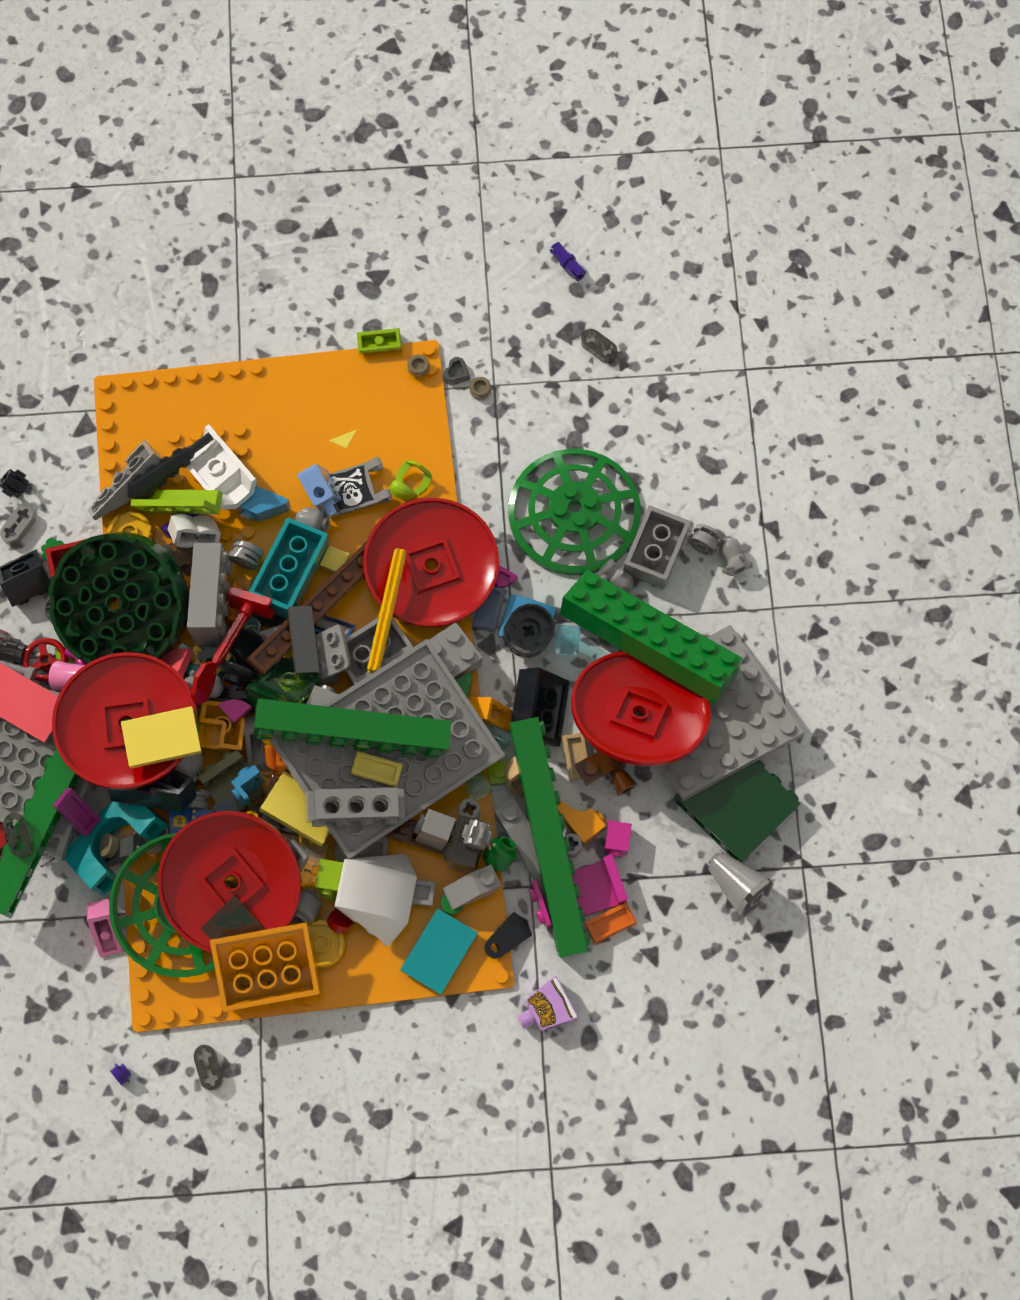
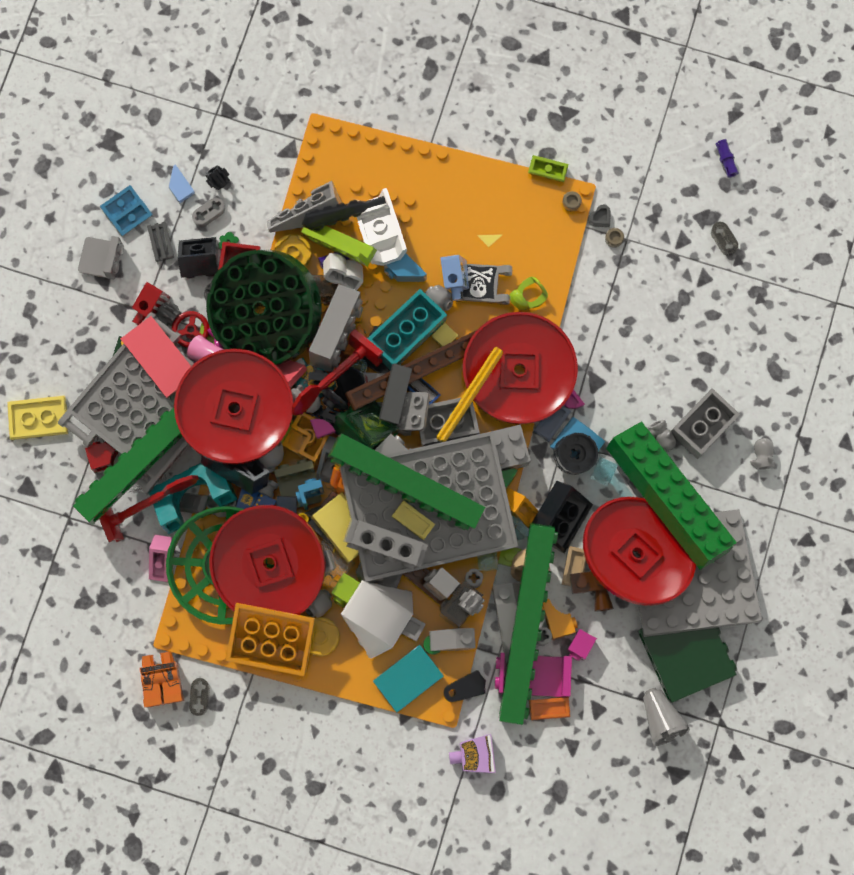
camera: 20 degrees right, 5 degrees up
(24, 834) = (126, 464): clear smoke beam -> none
(32, 907) = (111, 521): none -> red piece
(76, 812) = (171, 462): magenta tile -> none
(108, 845) = (186, 496): dark tan tile -> none
(121, 1073) = (132, 675): dark purple plate -> none
(148, 1062) = (158, 676): none -> orange hips
(161, 737) = (256, 431): light yellow tile -> none
(232, 920) = (259, 594): tile -> none
(245, 554) = (376, 305): light grey wheel -> none
(339, 922) = (339, 625): red tile -> none
(500, 853) = (484, 622): green head -> none
(574, 522) = (643, 376): green dish -> none
(705, 539) = (746, 432): light grey wheel -> none

